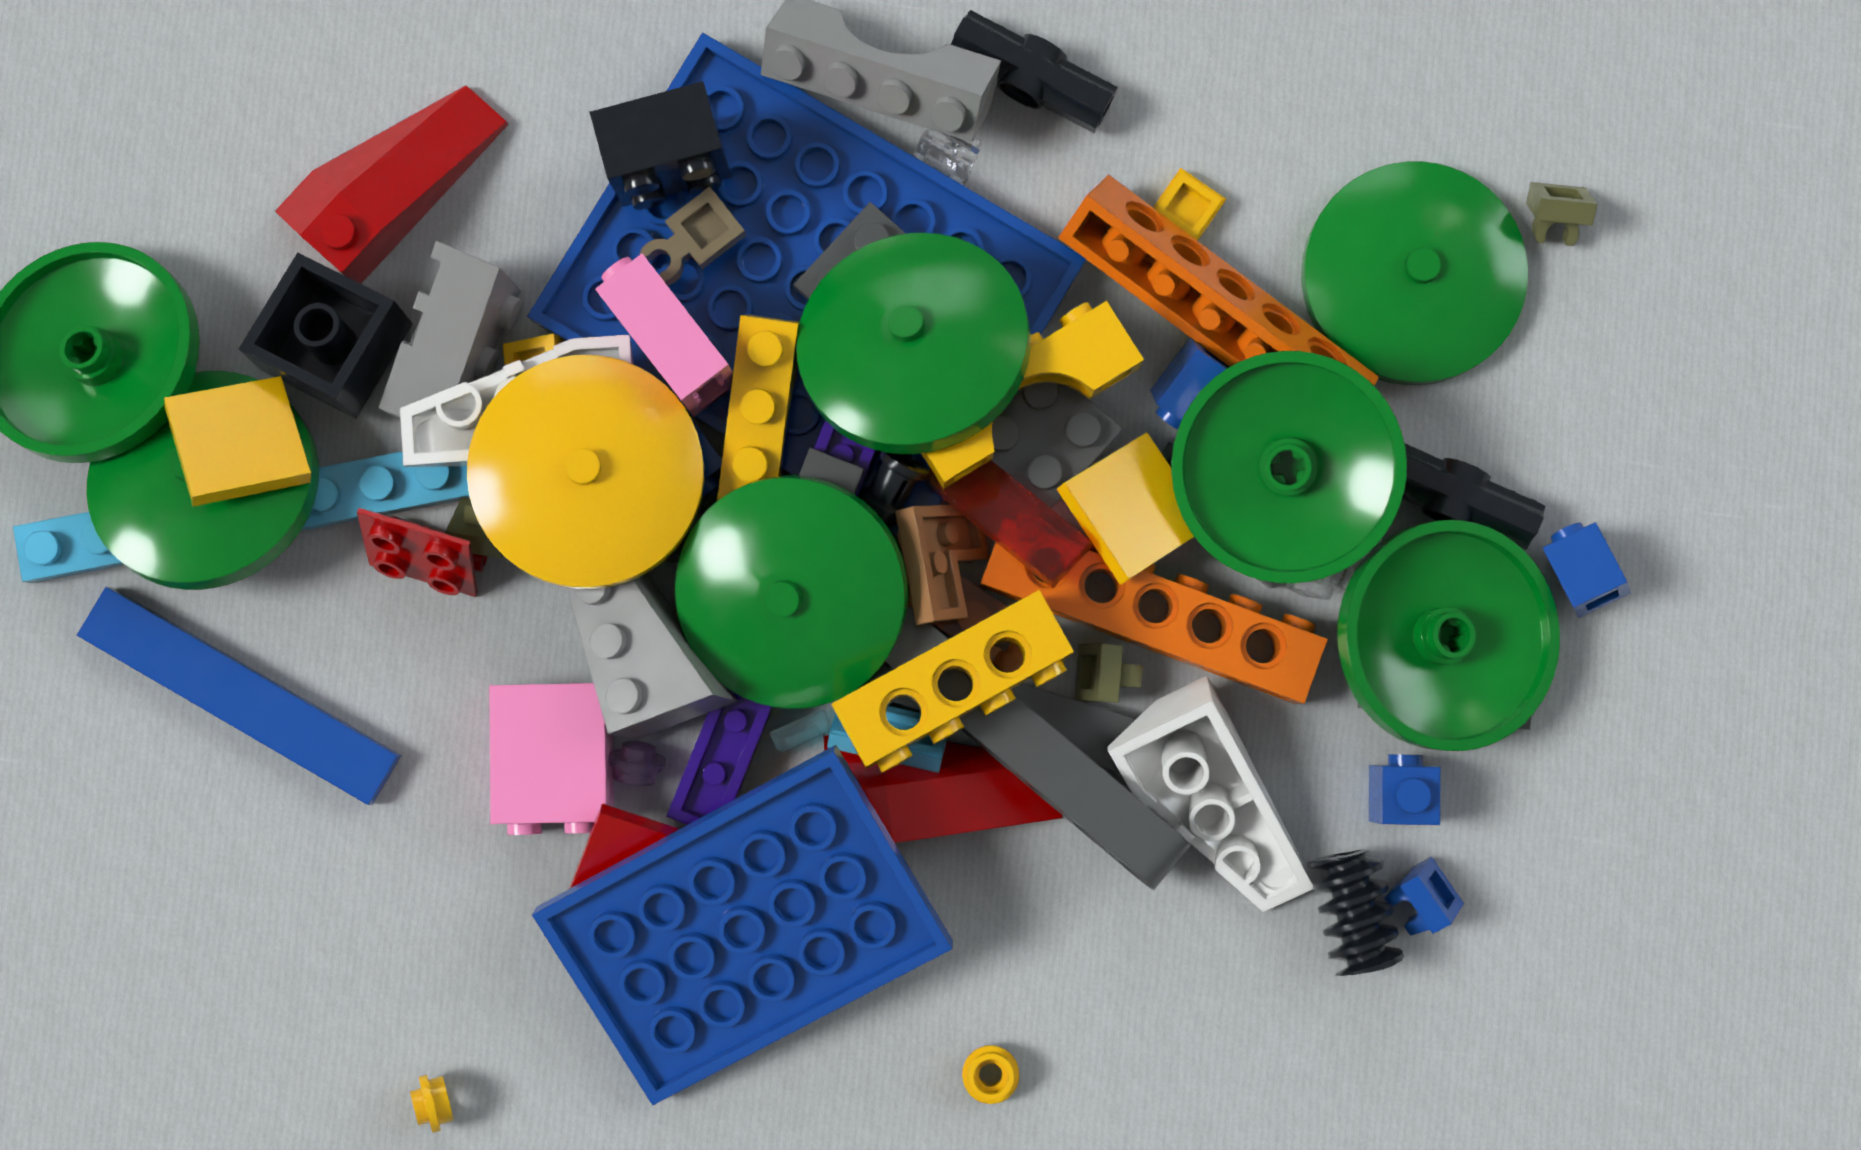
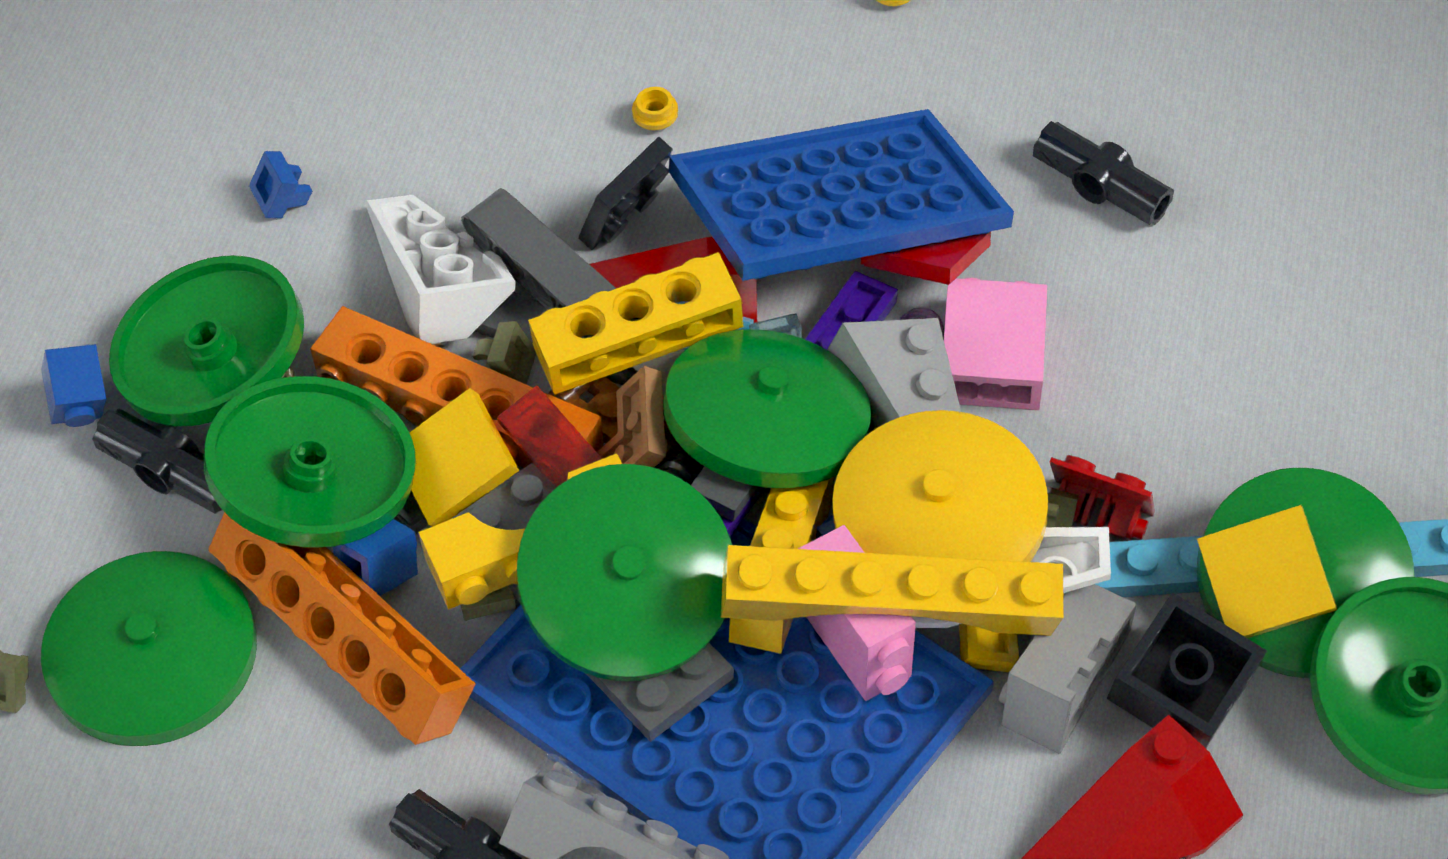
camera: 170 degrees left, 30 degrees down
(239, 695) = (1271, 416): blue tile -> none
(431, 1103) = (1107, 123): yellow plate -> none
(435, 1025) = (1103, 173): none -> black piece
(661, 146) = (844, 777): black brick -> none
(700, 231) = (820, 722): dark tan plate -> none
(723, 306) = (973, 592): none -> yellow arch
(1008, 893) = (628, 191): none -> black plate
(1189, 203) = (347, 725): yellow tile -> none
(1357, 912) = (337, 175): black piece -> none
(1404, 792) = (279, 242): blue brick -> none

